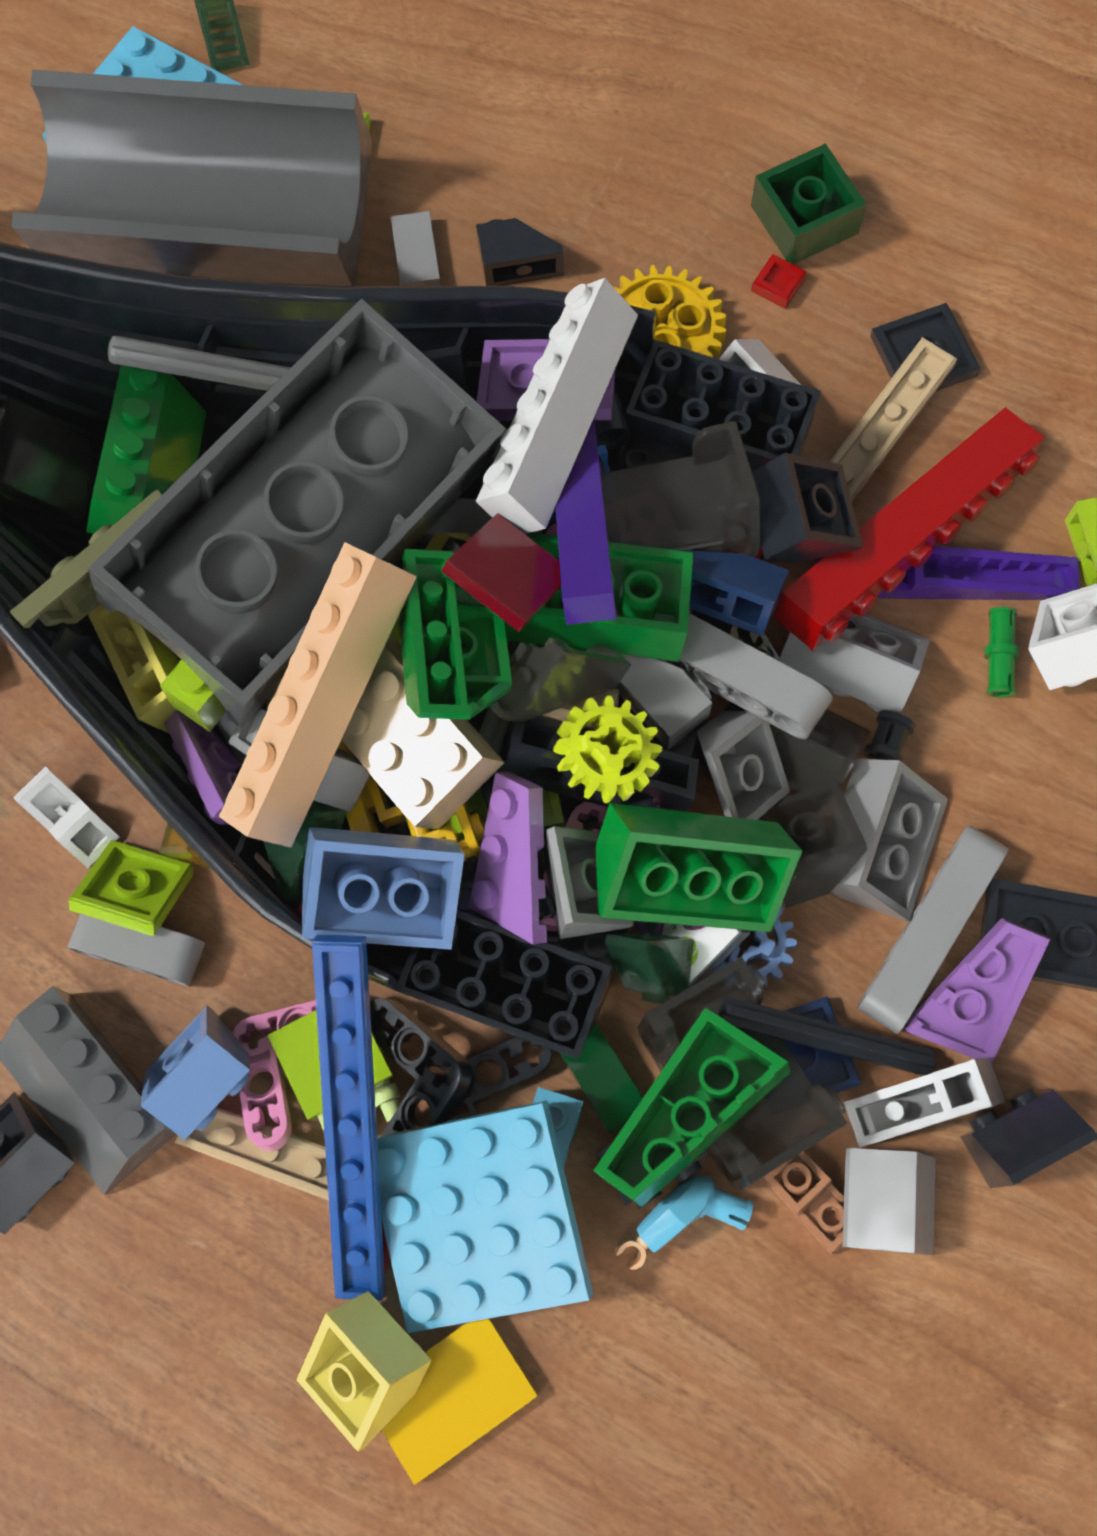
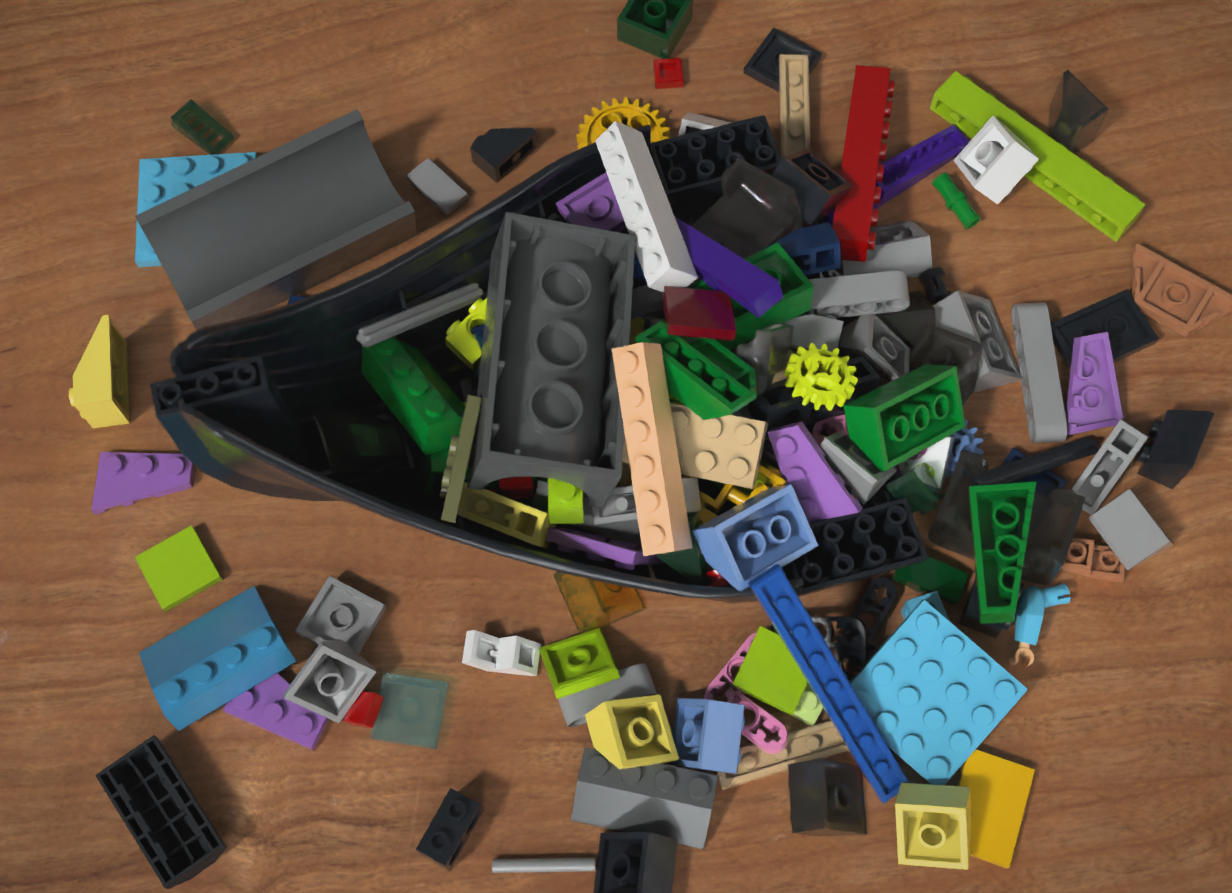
camera: 40 degrees left, 5 degrees down
(113, 1011) = (632, 732): none -> light yellow slope
(272, 1246) = (826, 798): none -> clear smoke slope

